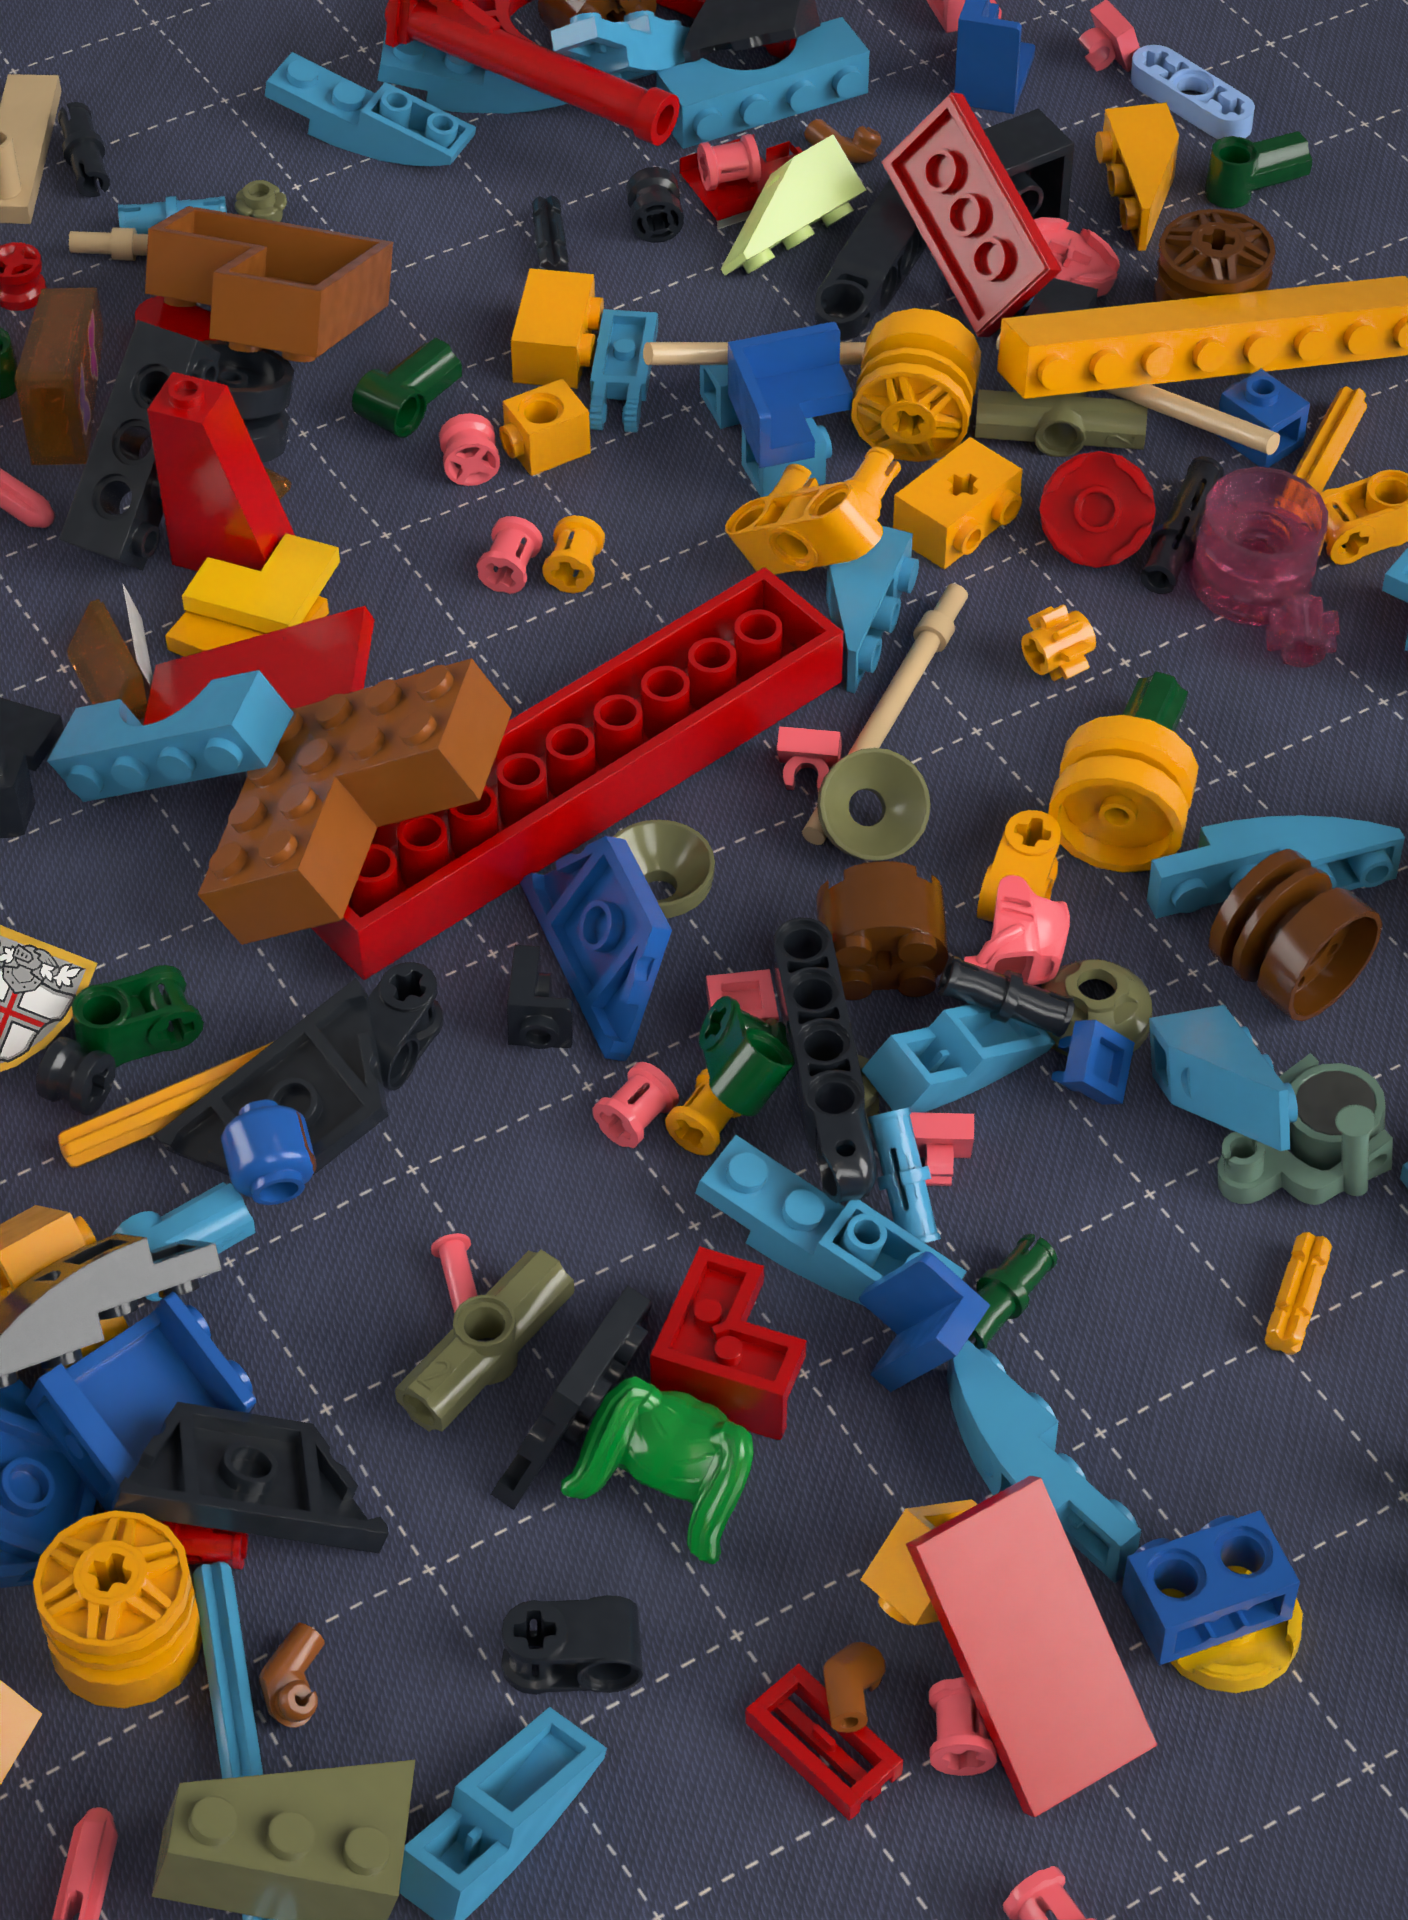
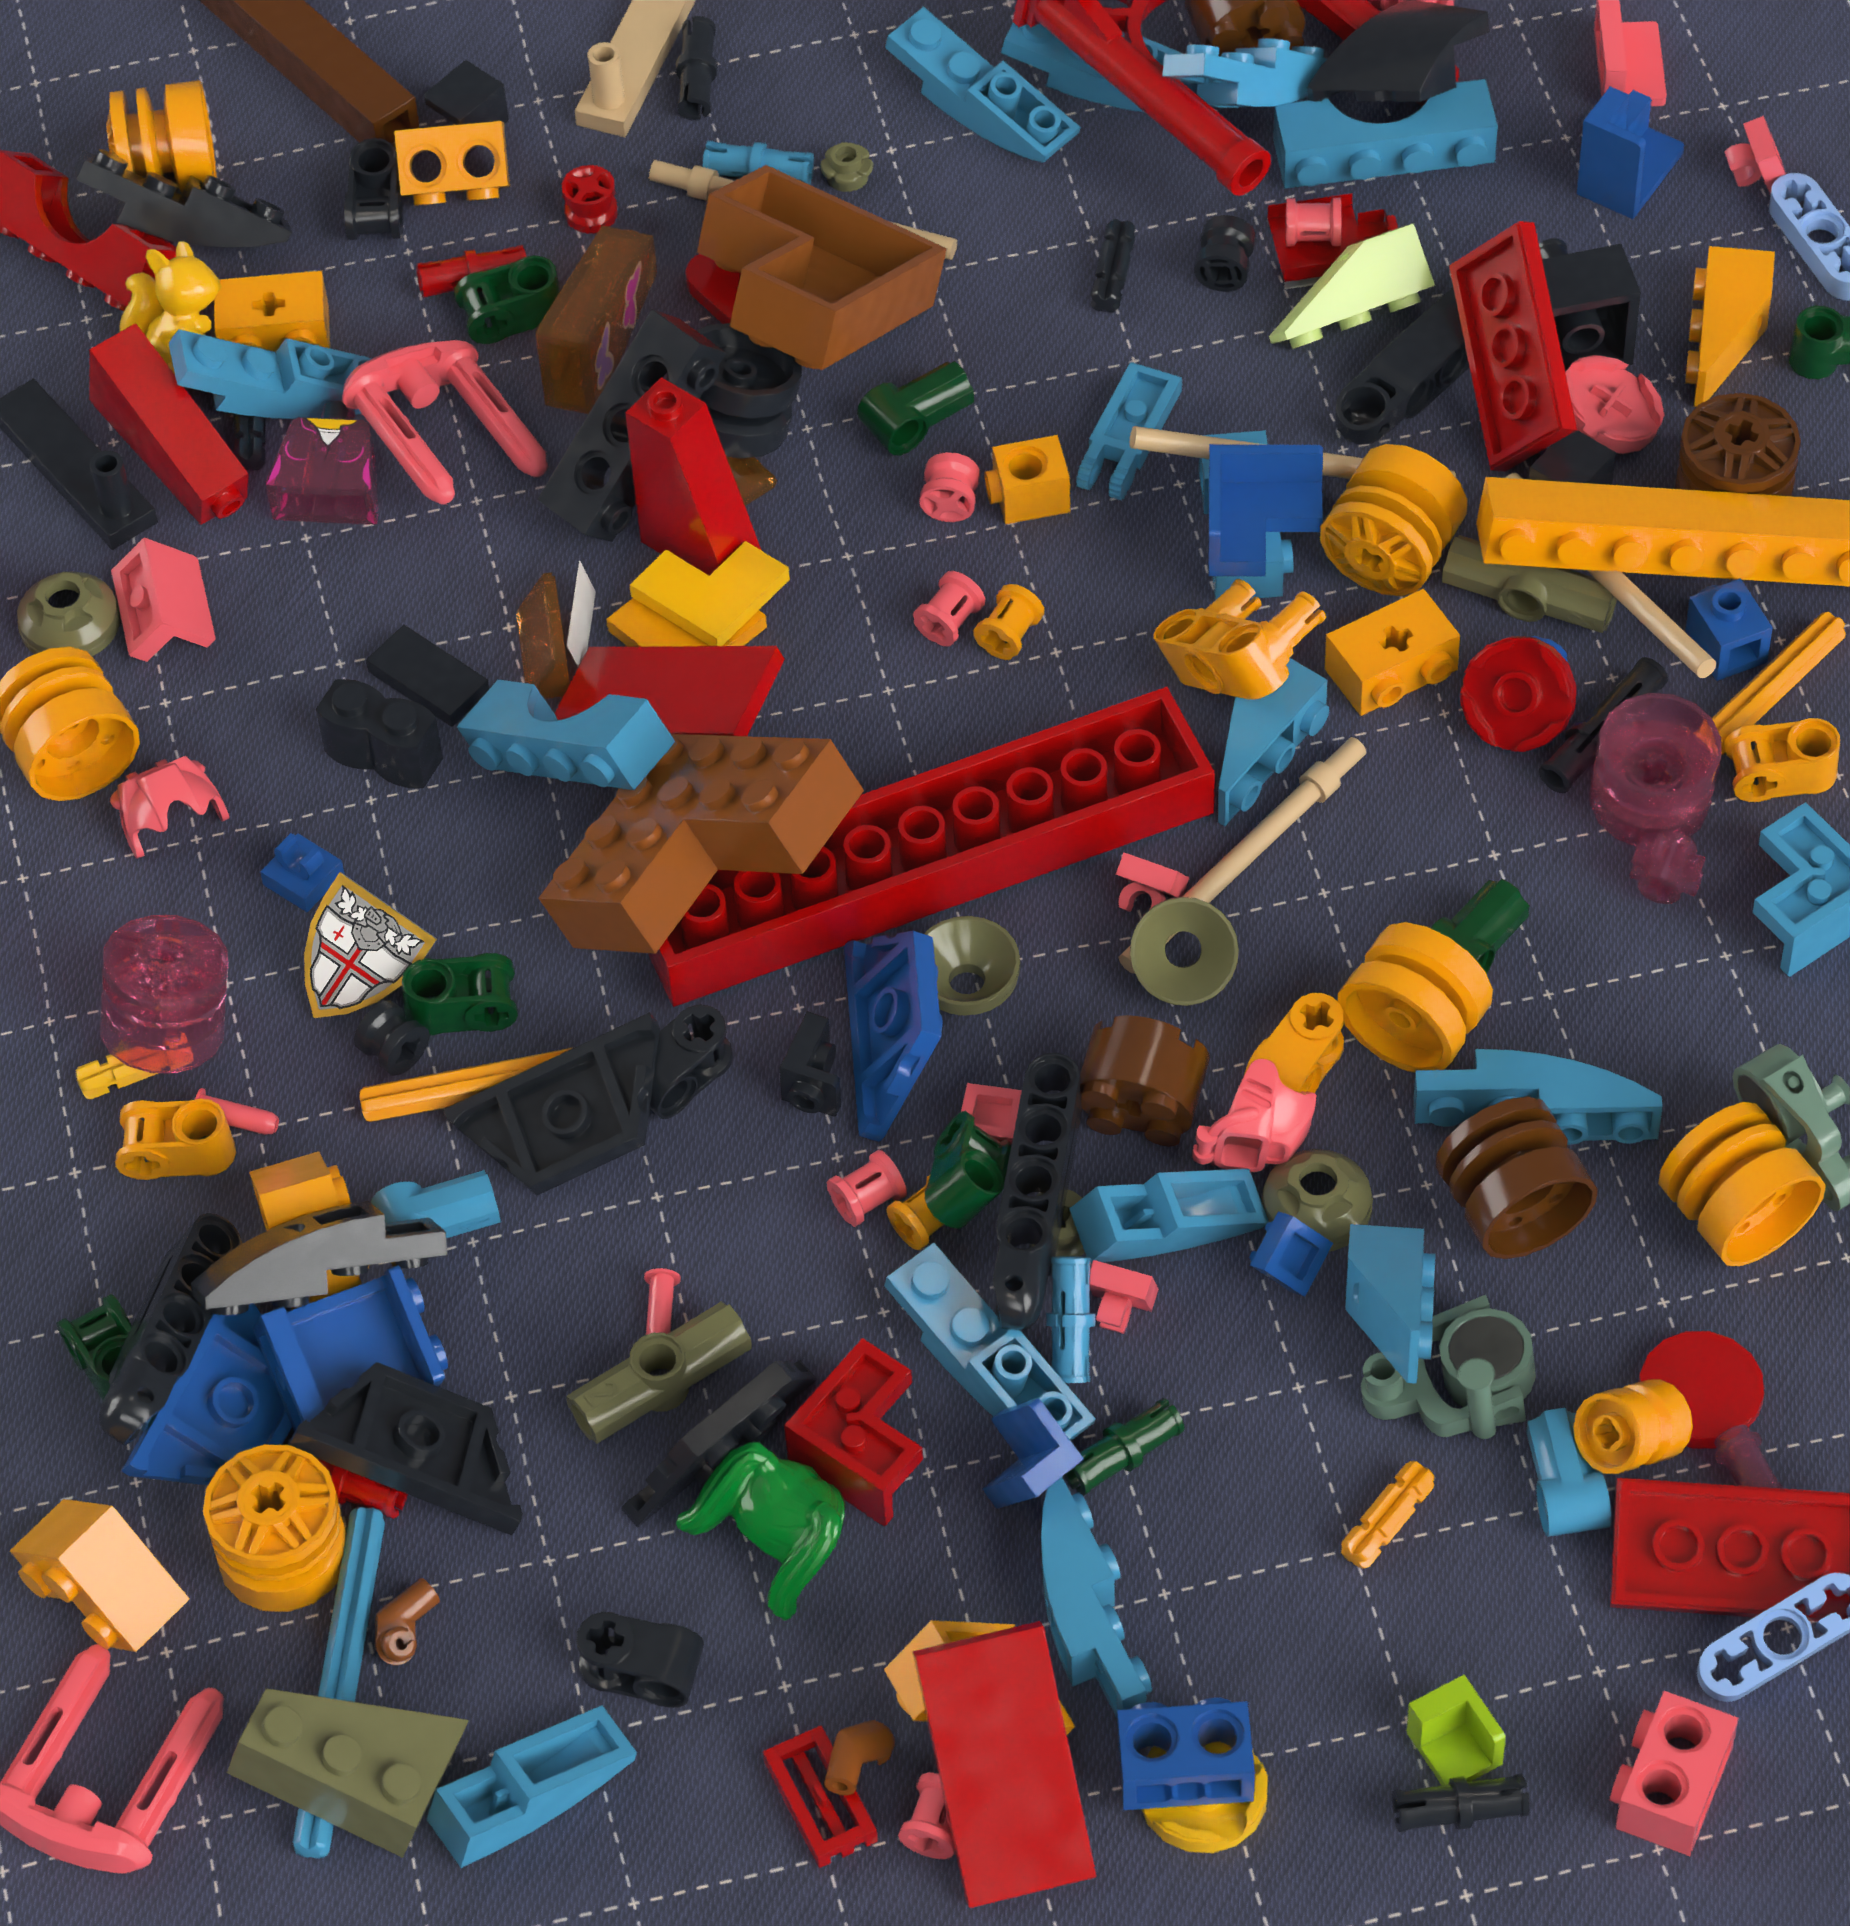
camera: 20 degrees right, 5 degrees up
(268, 1152) = (525, 1156): blue head -> none
(555, 327) = (1077, 372): light orange brick -> none
(858, 150) = (1437, 225): dark orange arm -> none
(1006, 996) = (1225, 1172): black pin -> none
(1058, 642) = (1427, 824): light orange gear -> none

